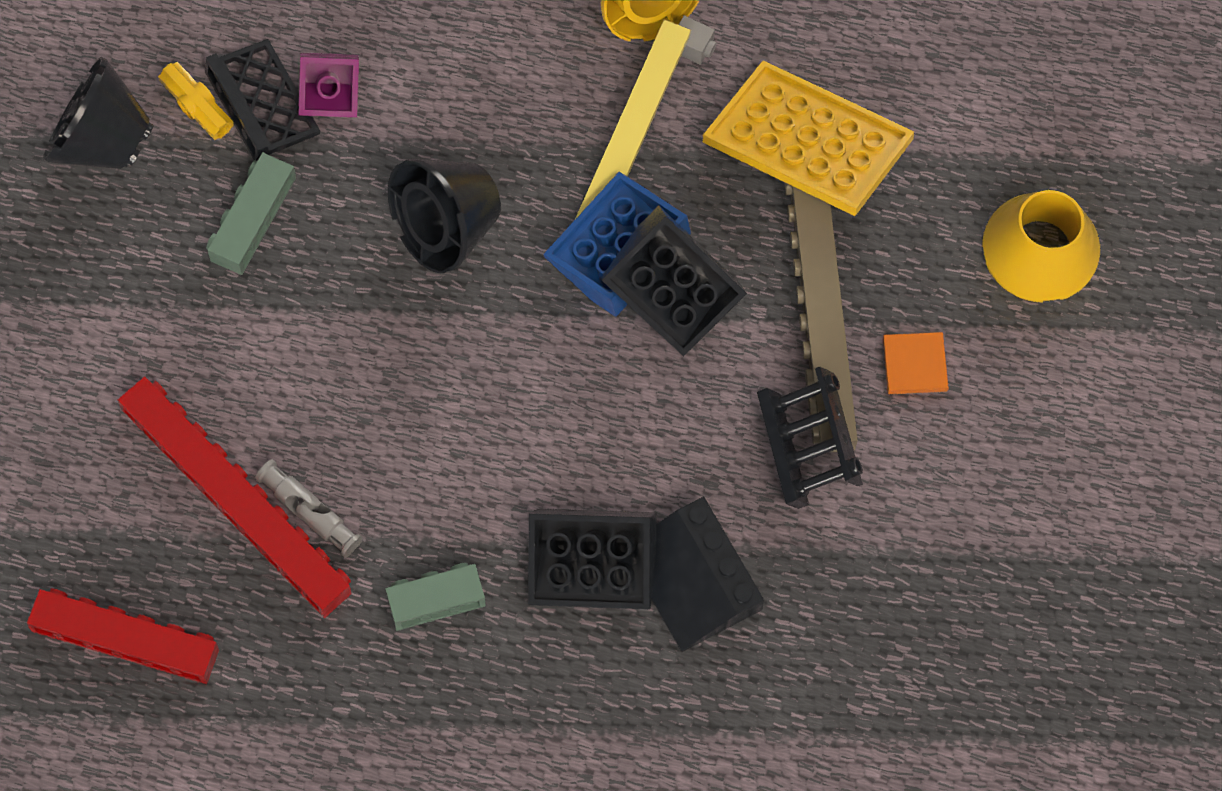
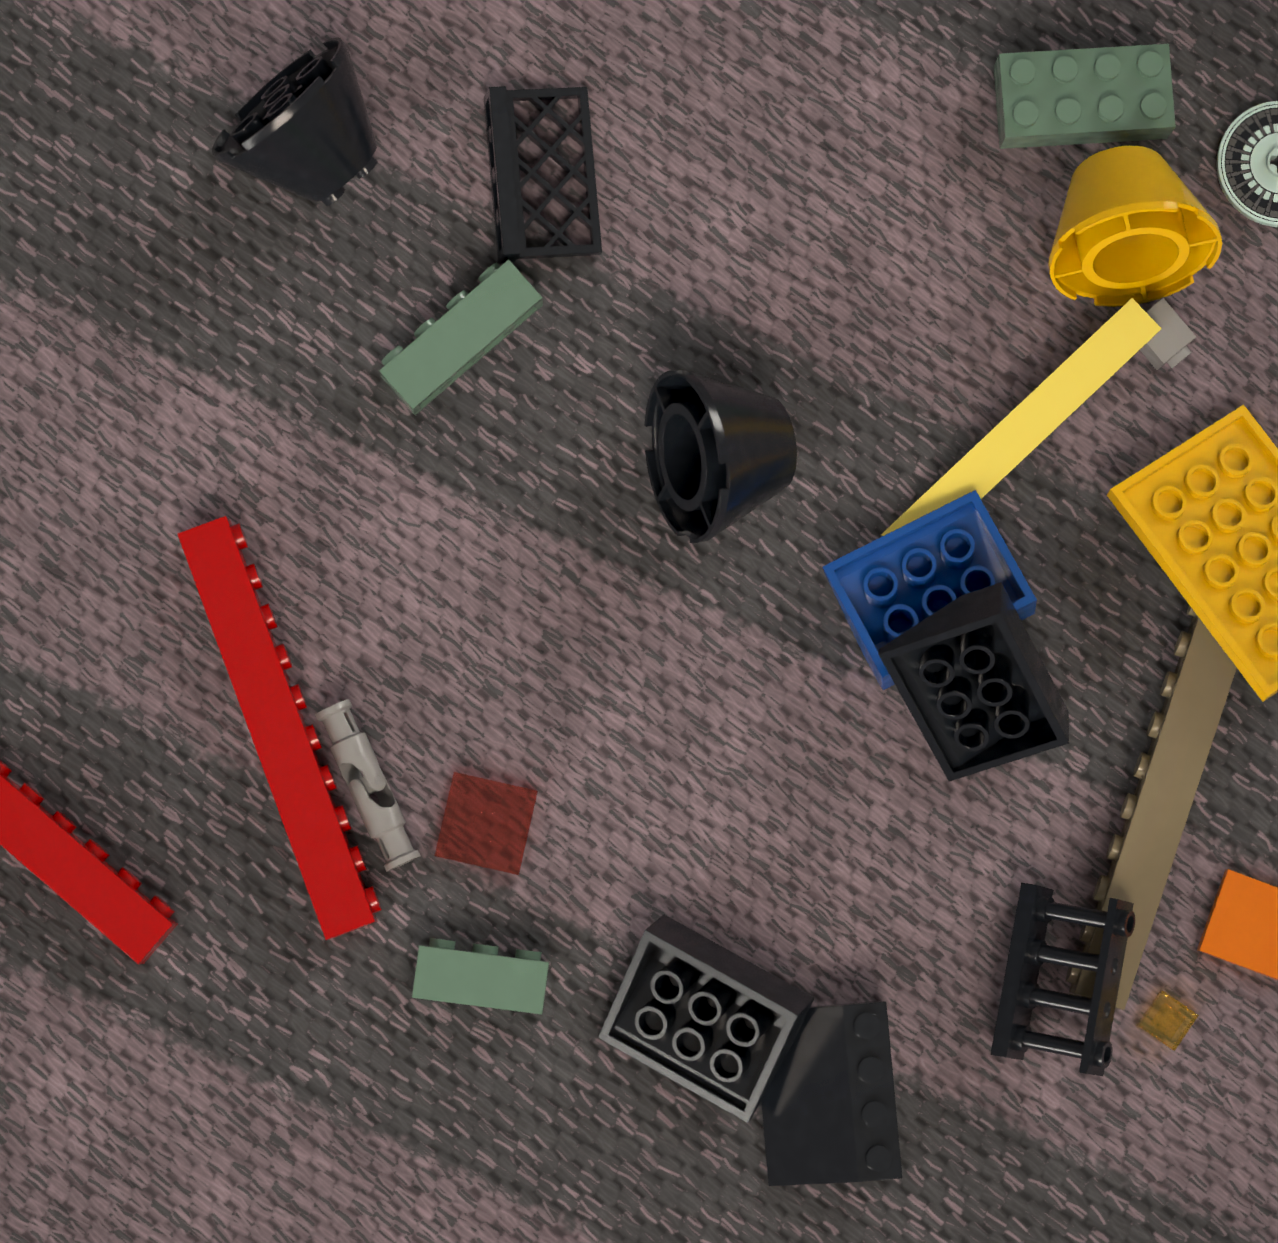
camera: 20 degrees right, 15 degrees up
(195, 100) = (452, 139): yellow piece -> none
(328, 84) = (639, 193): magenta slope -> none
(396, 502) = (486, 823): none -> clear red tile
(889, 442) = (1167, 1020): none -> clear yellow tile

